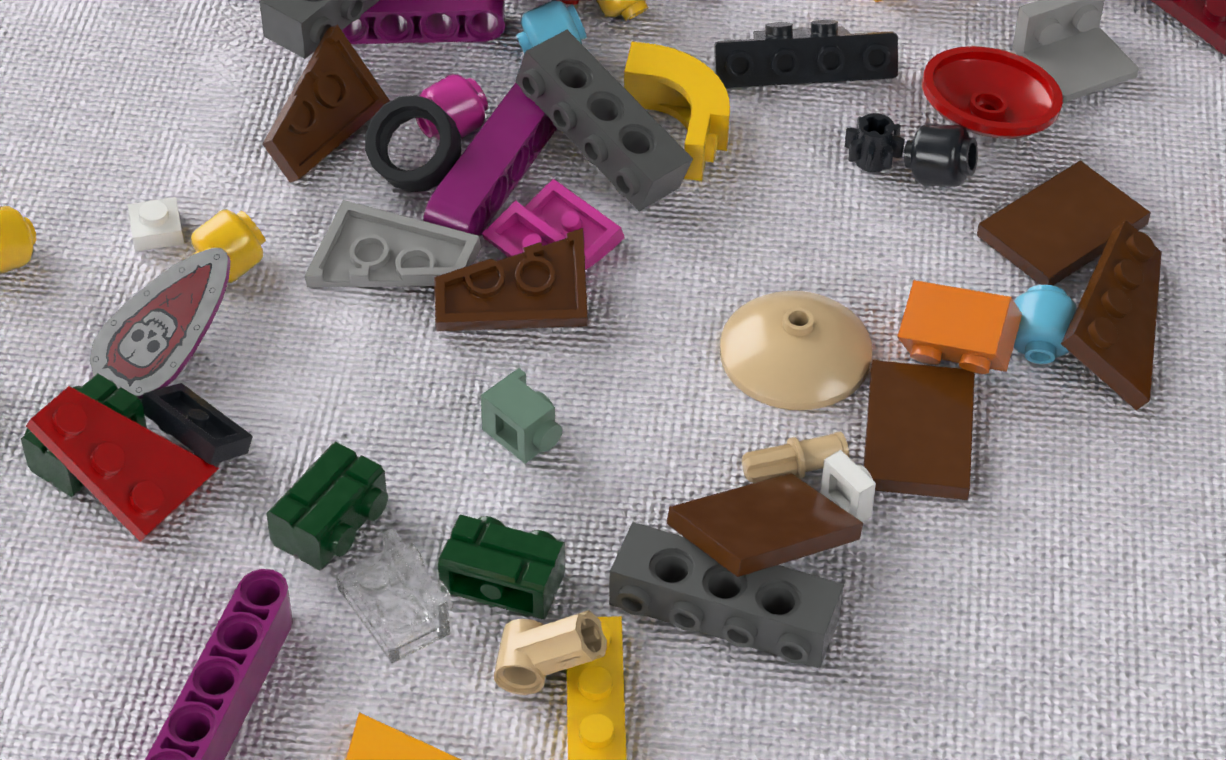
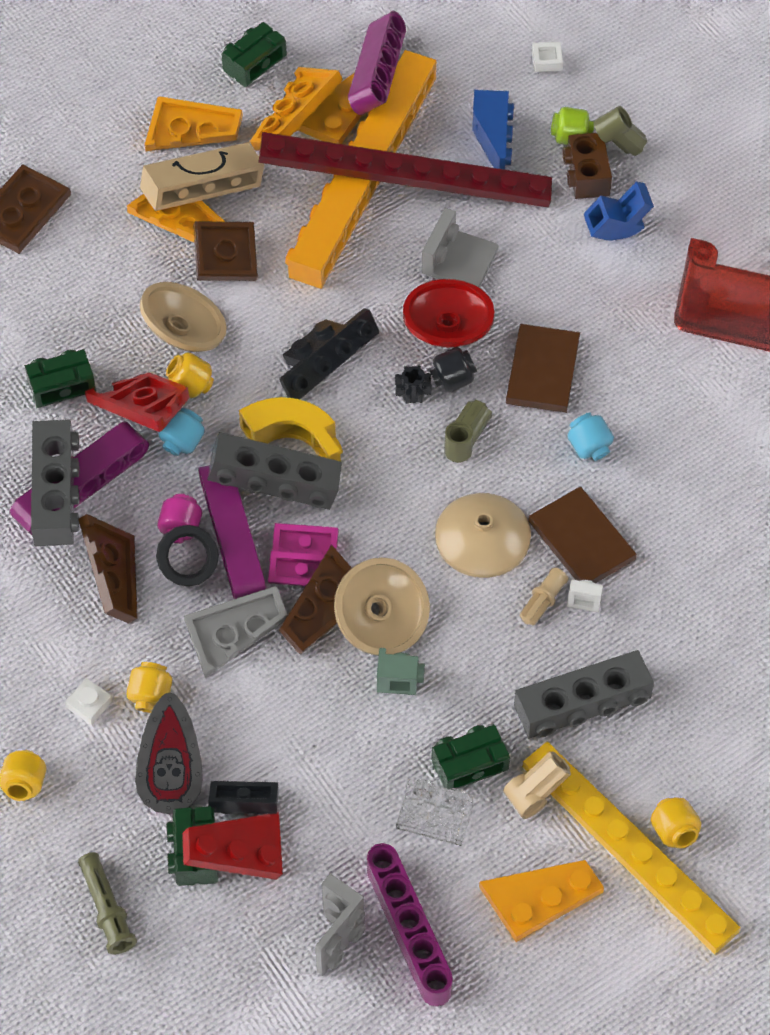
camera: 40 degrees left, 10 degrees up
(122, 630) = (346, 911): none -> light grey bracket
(328, 506) = (356, 790): dark green brick -> none
(569, 296) = (401, 603): none -> tan dish
(764, 524) = (572, 644): reddish brown tile -> none
(876, 225) = (465, 431): none -> olive piece
(959, 327) = (560, 468): orange brick -> none
(1118, 315) = (618, 405): reddish brown wing -> none

